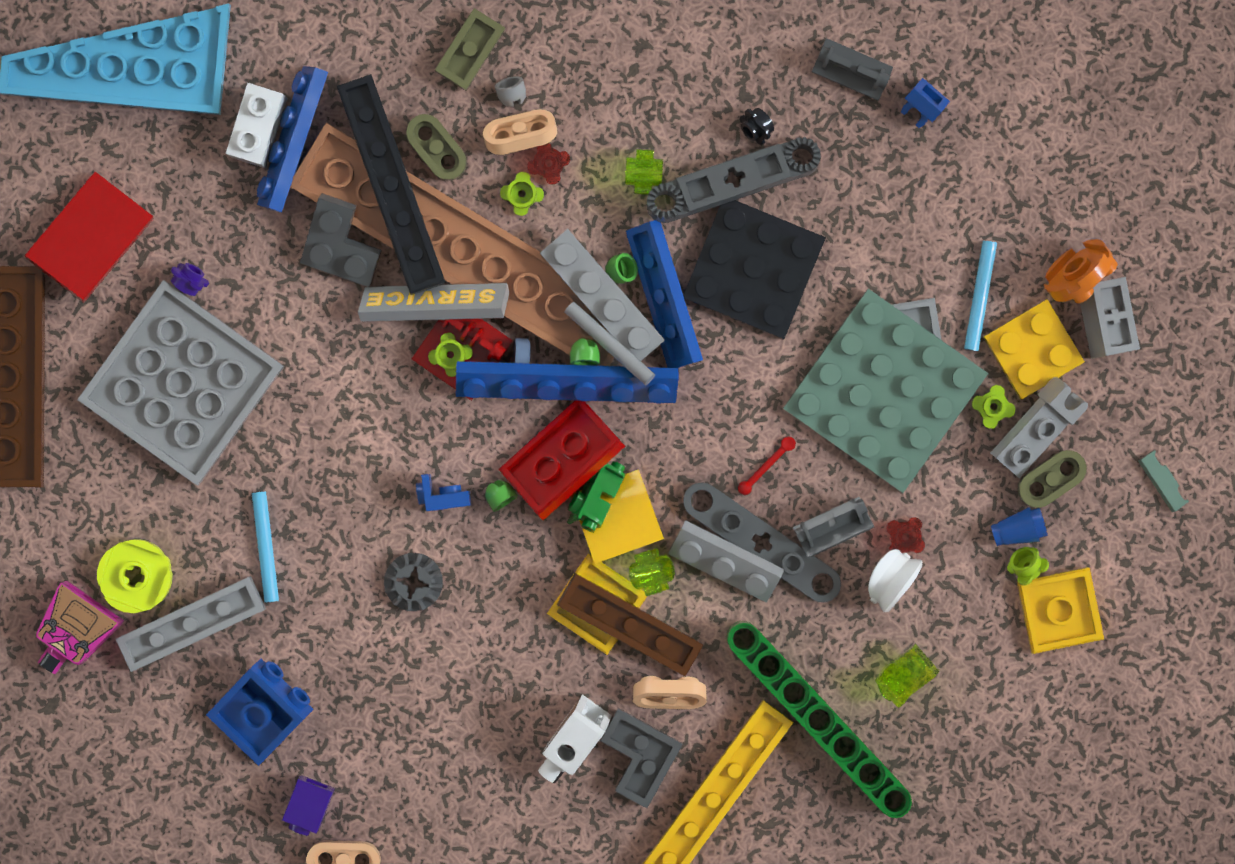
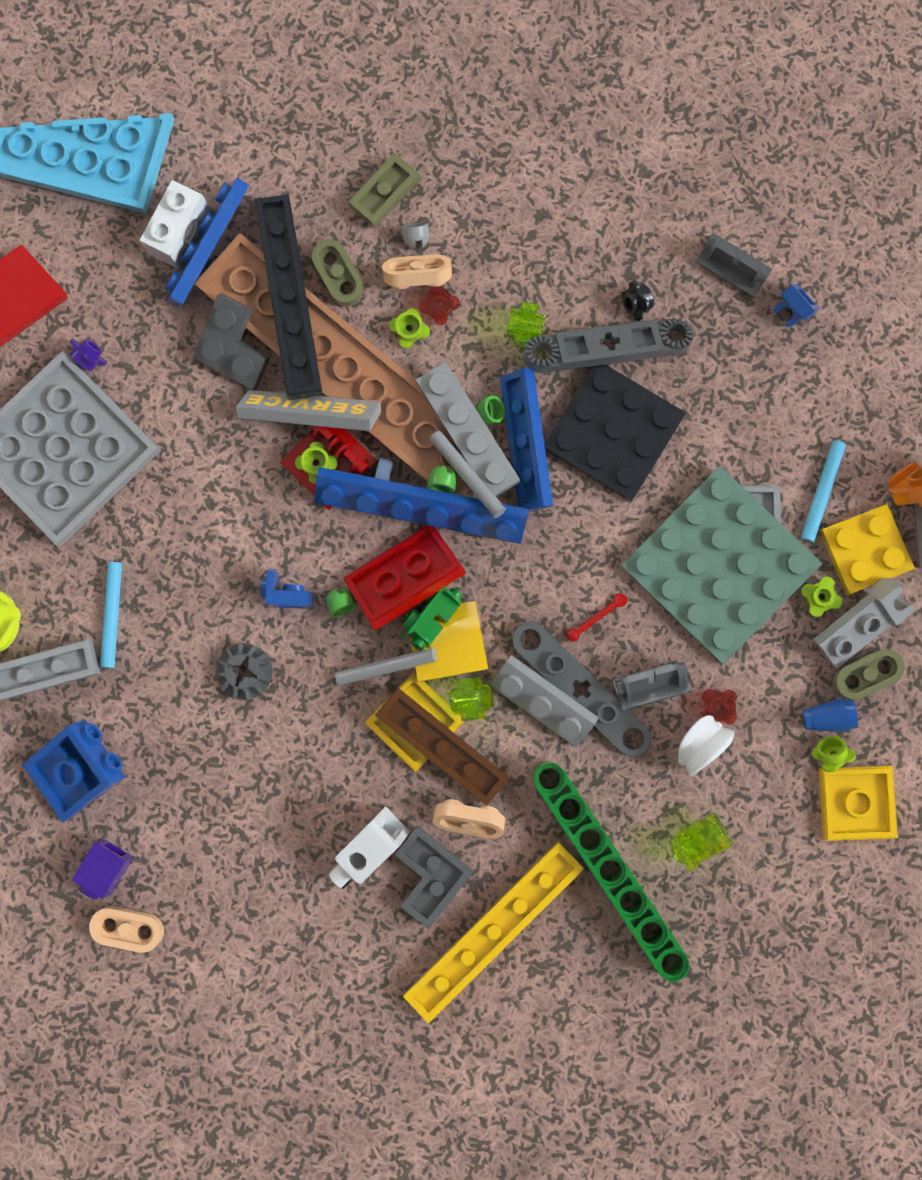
camera: 15 degrees right, 5 degrees down
(559, 553) = (386, 666): none -> light grey bar

